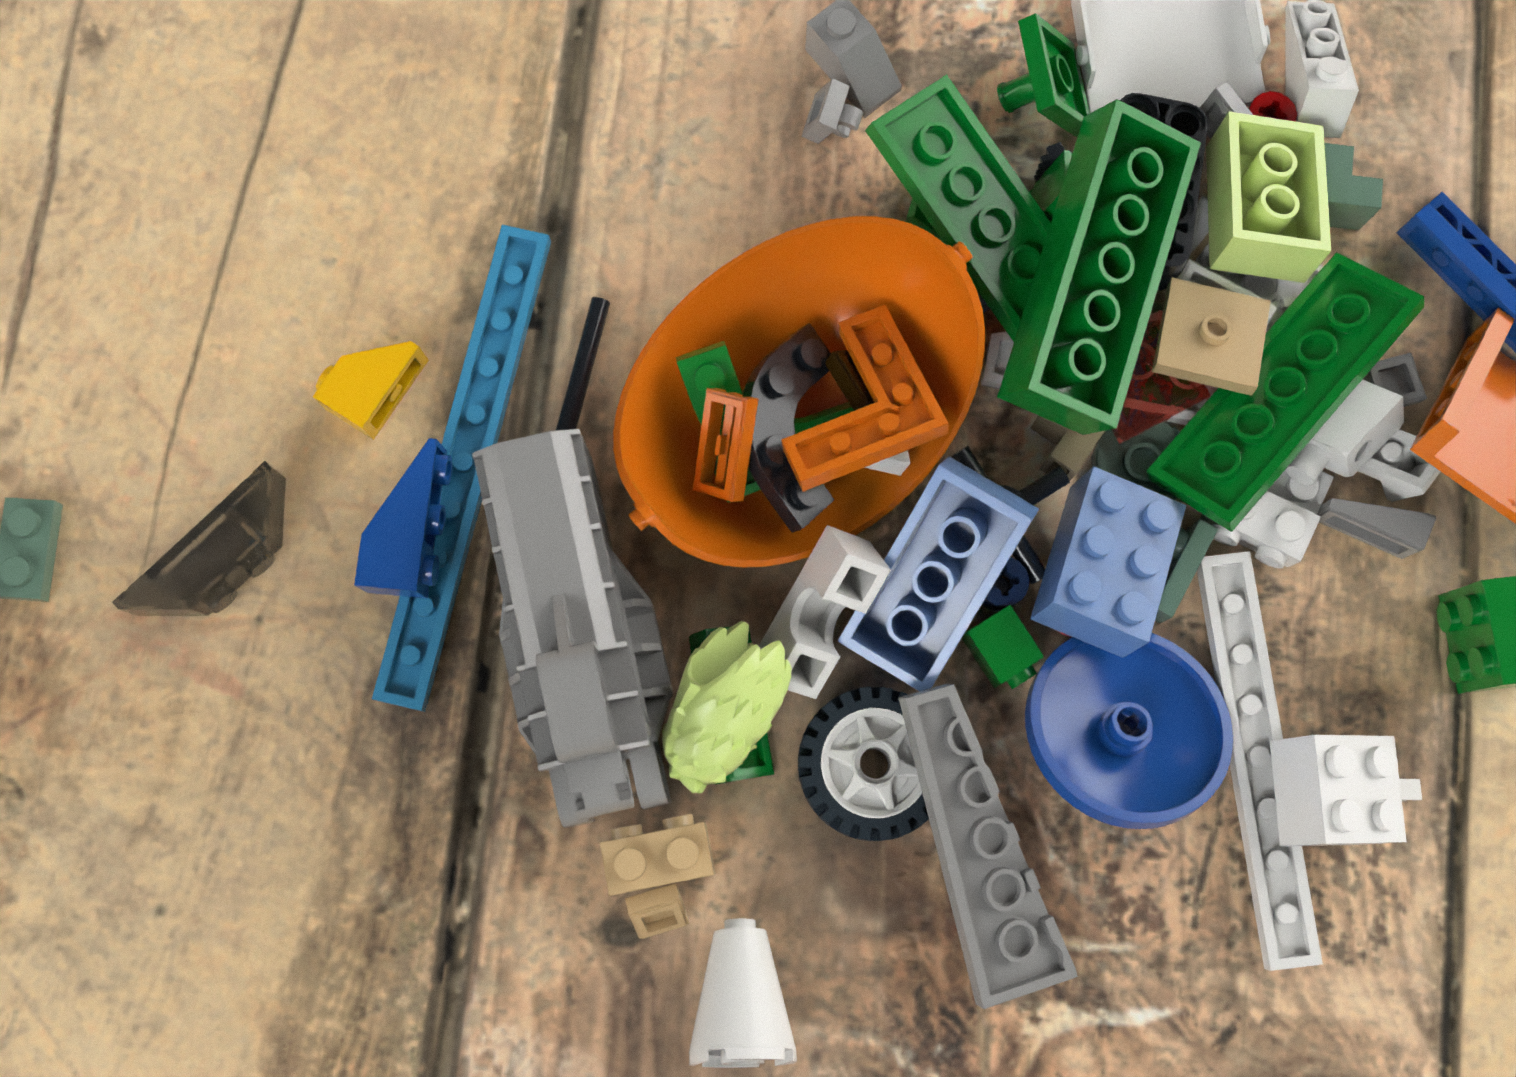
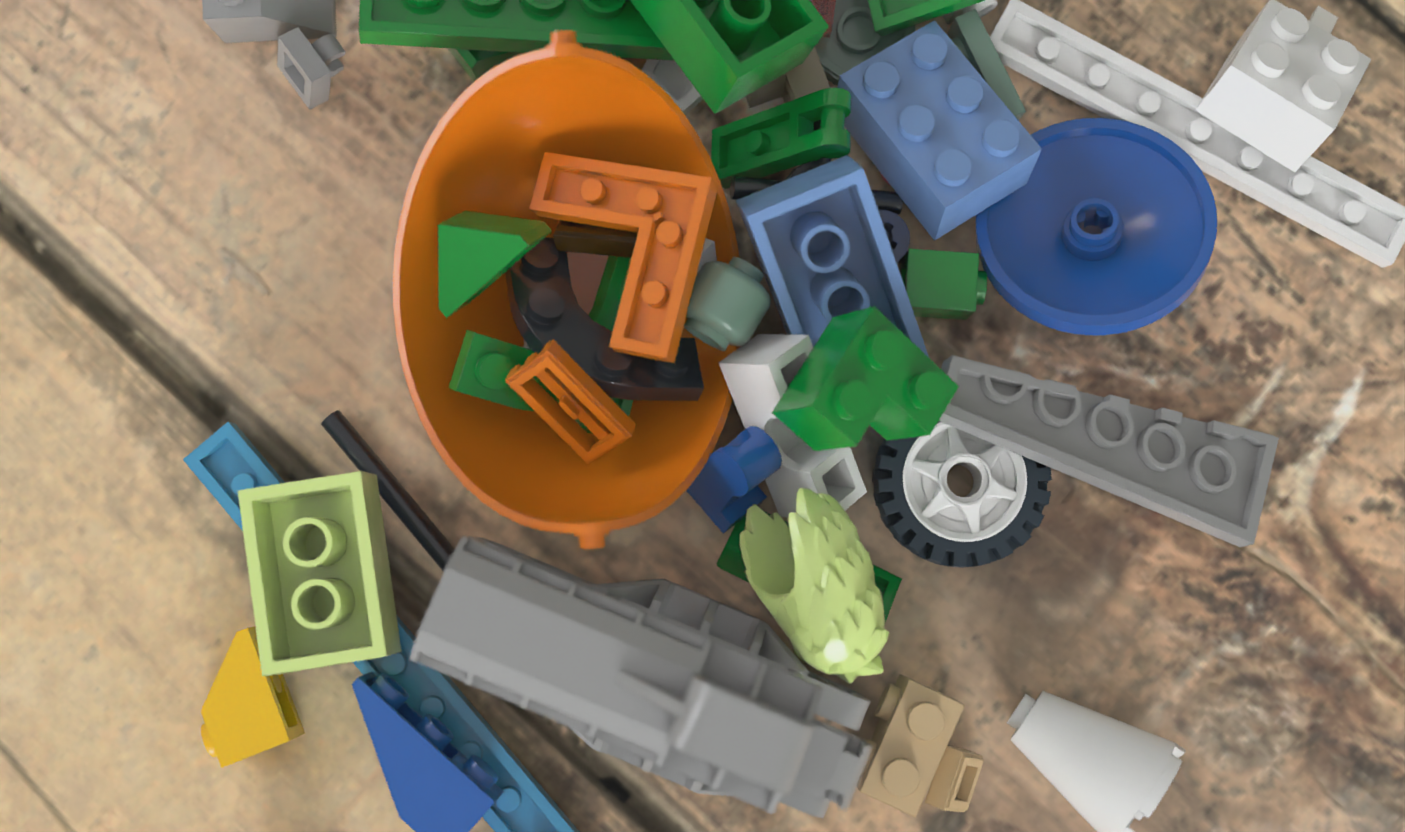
camera: 55 degrees left, 5 degrees up
(490, 363) = (319, 572): none -> yellowish green brick
(757, 596) = (732, 477): none -> blue leg
(781, 309) = (478, 251): none -> green slope
(872, 500) = (727, 303): none -> sand green head
(892, 626) = (863, 377): none -> green brick
(1021, 459) = (783, 136): none -> green plate

